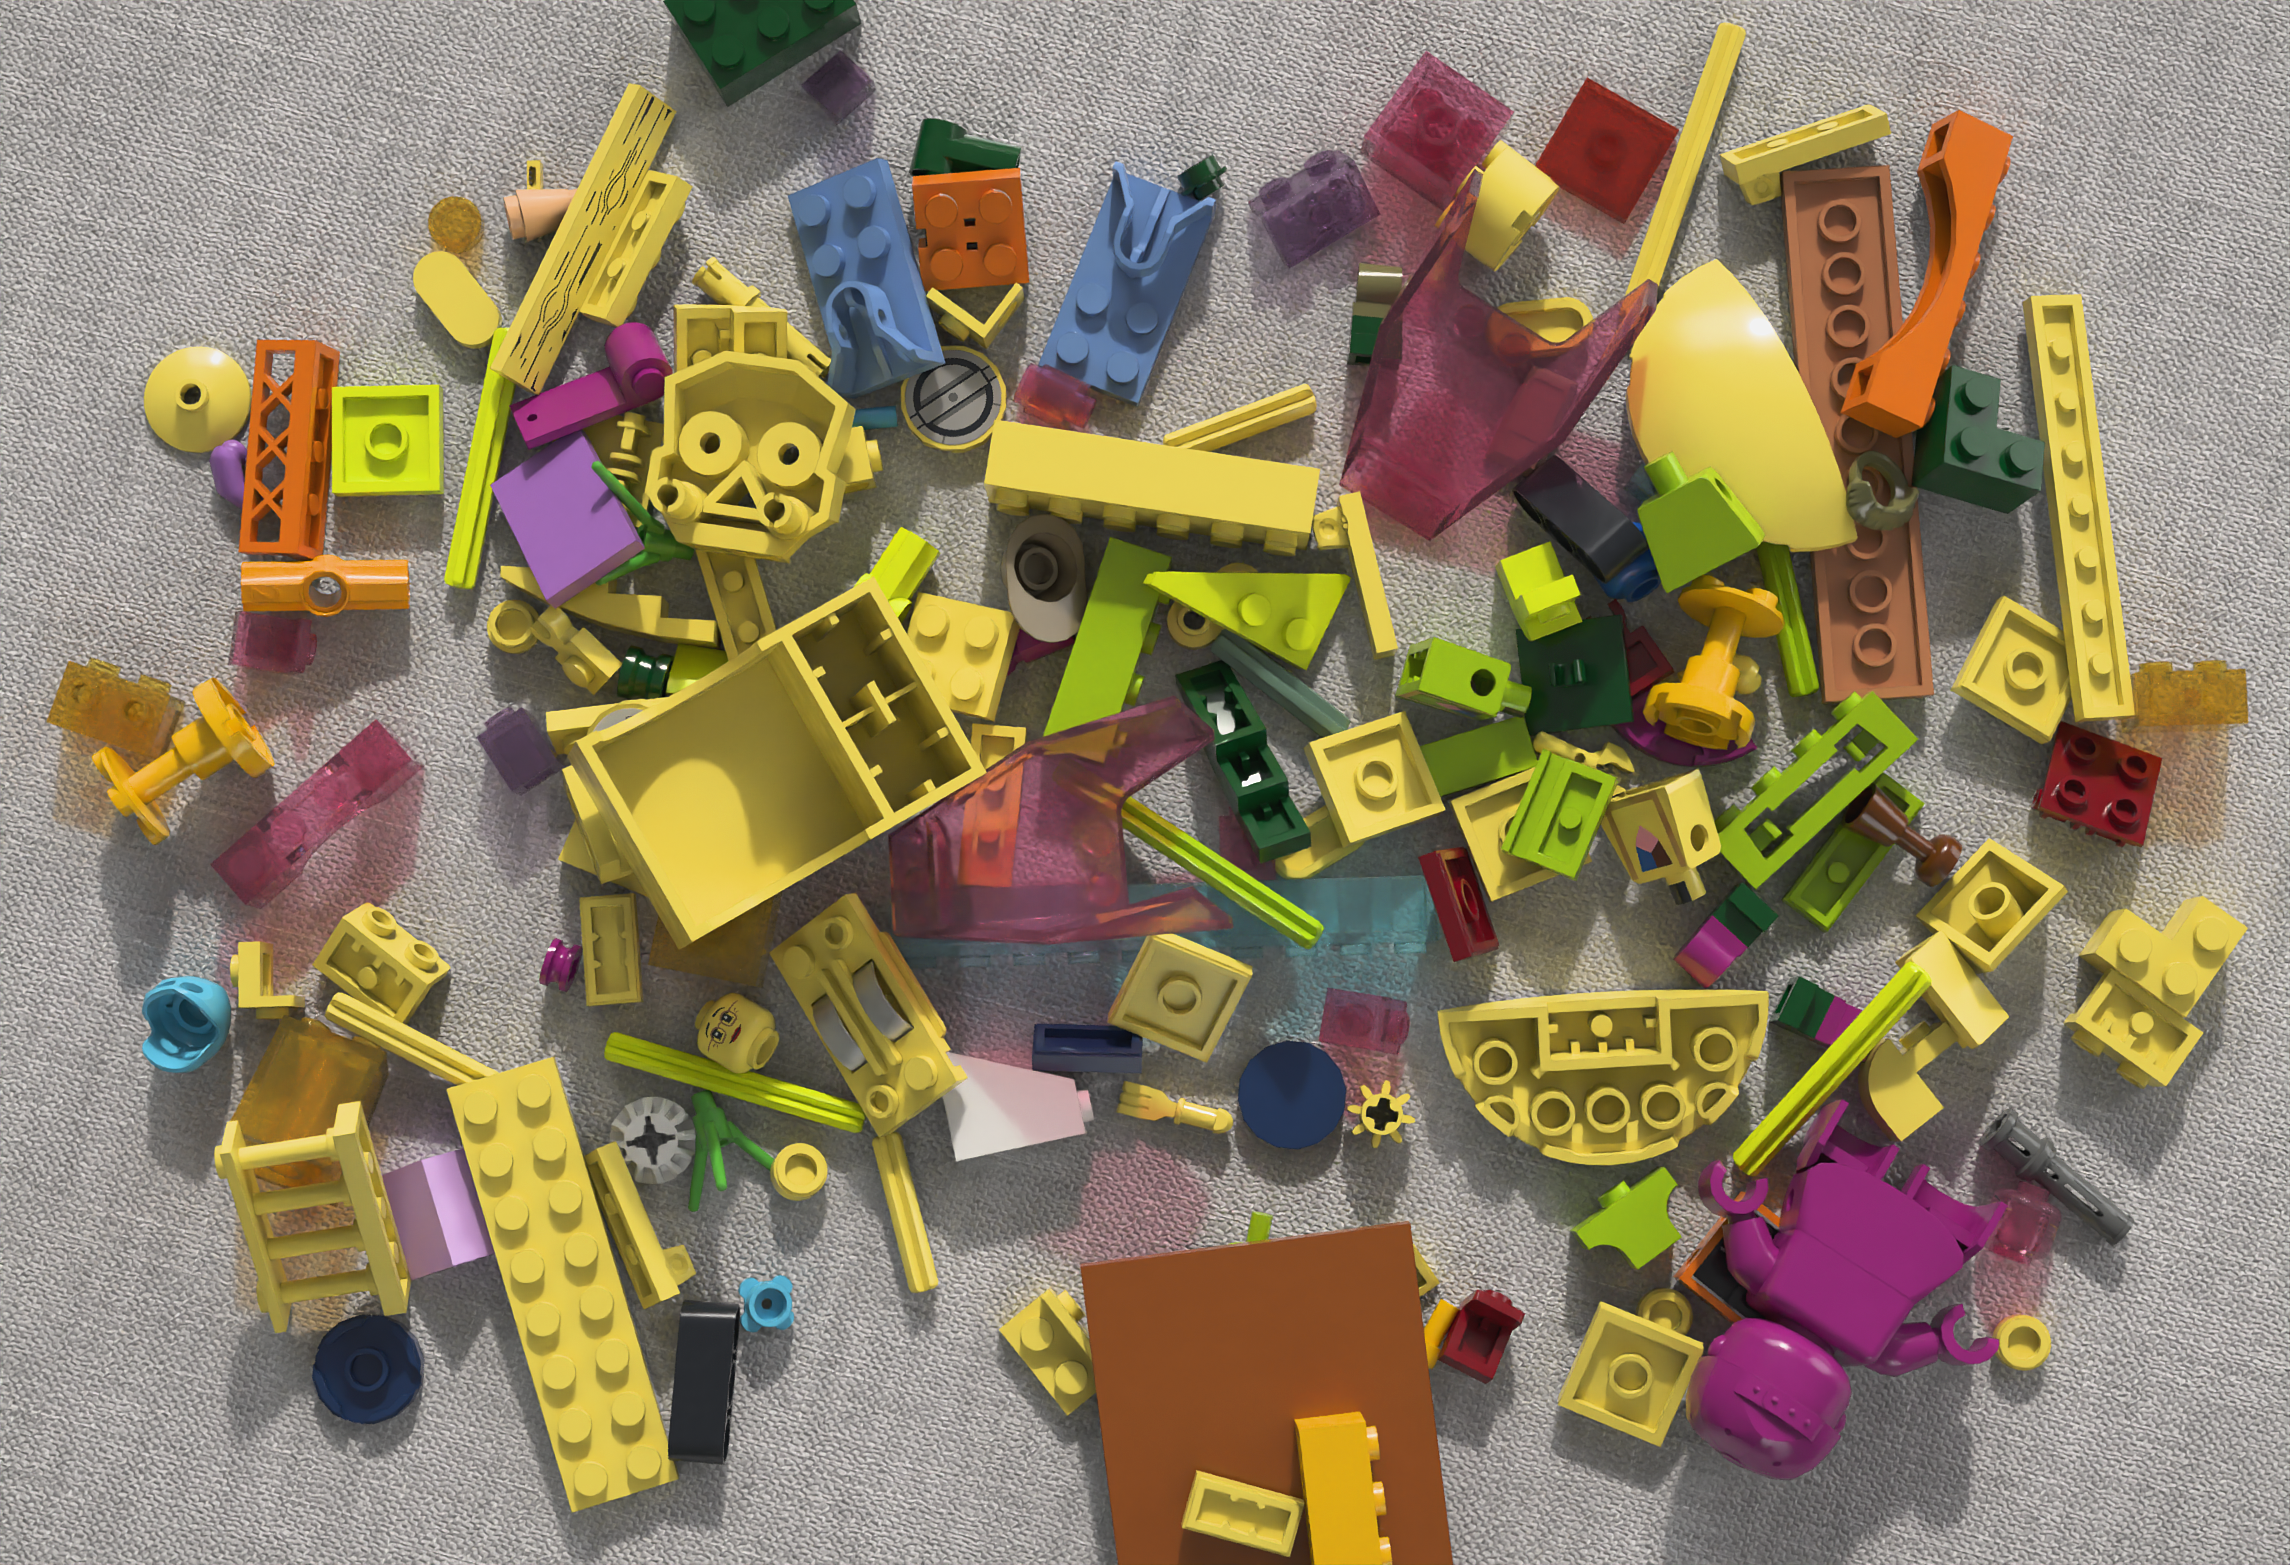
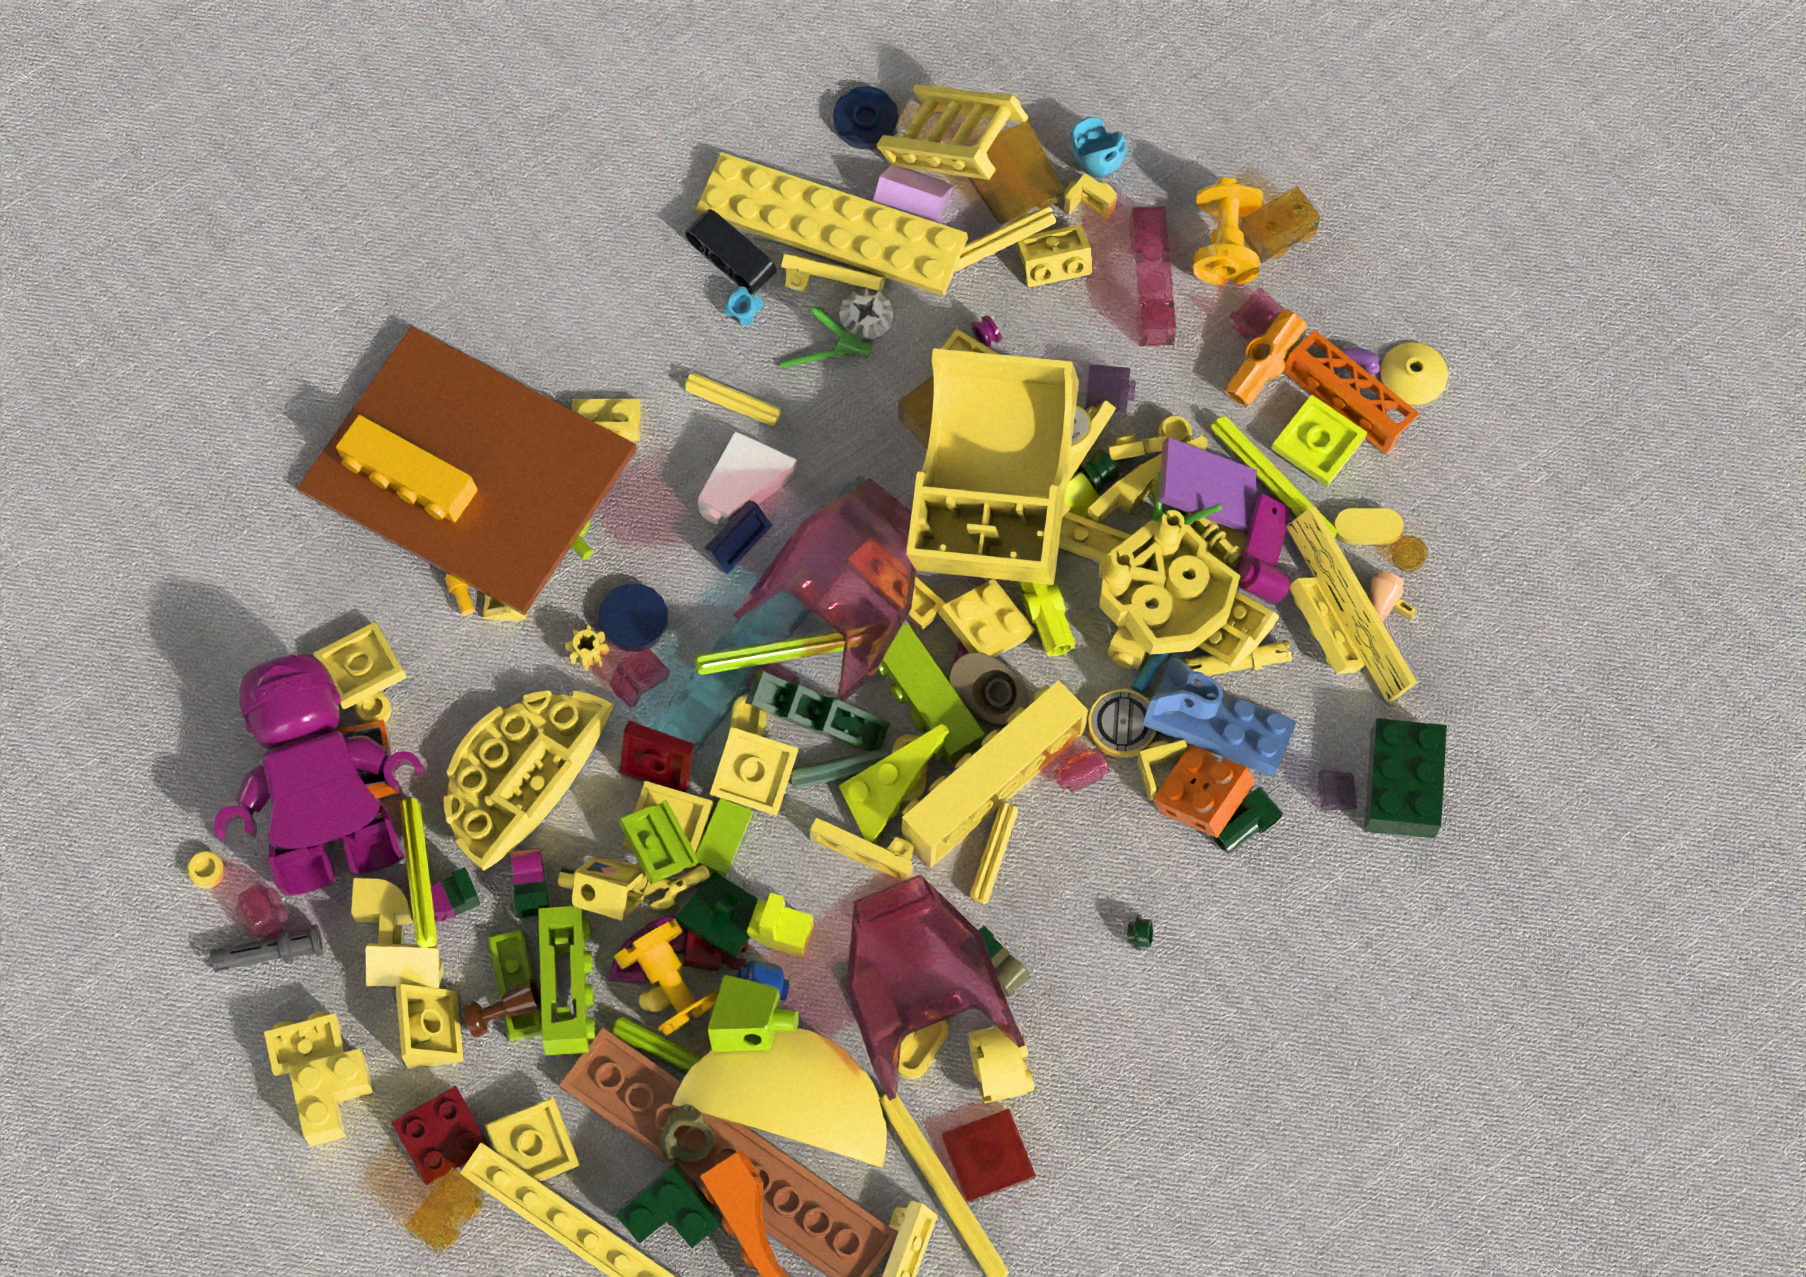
camera: 125 degrees right, 15 degrees down
(736, 1033) = (884, 384): light yellow head -> none
(744, 1086) = (861, 370): neon yellow axle -> none
(798, 1172) = (793, 365): light yellow tile -> none
(869, 1013) = (841, 446): light yellow piece -> none
(1128, 286) = (1112, 853): medium blue plate -> none
(1154, 1105) = (684, 551): light yellow piece -> none
(1180, 994) = (721, 594): light yellow plate -> none
(1242, 1513) = (455, 430): light yellow plate -> none
(1314, 206) = (1079, 977): clear purple bracket -> none
(1435, 131) = (1067, 1065): clear pink brick -> none
(1441, 677) = (776, 840): lime torso -> none
(1480, 1334) = (440, 610): dark red bracket -> none
(1580, 519) = (800, 971): black beam -> none
(1632, 1219) = (430, 725): lime brick -> none

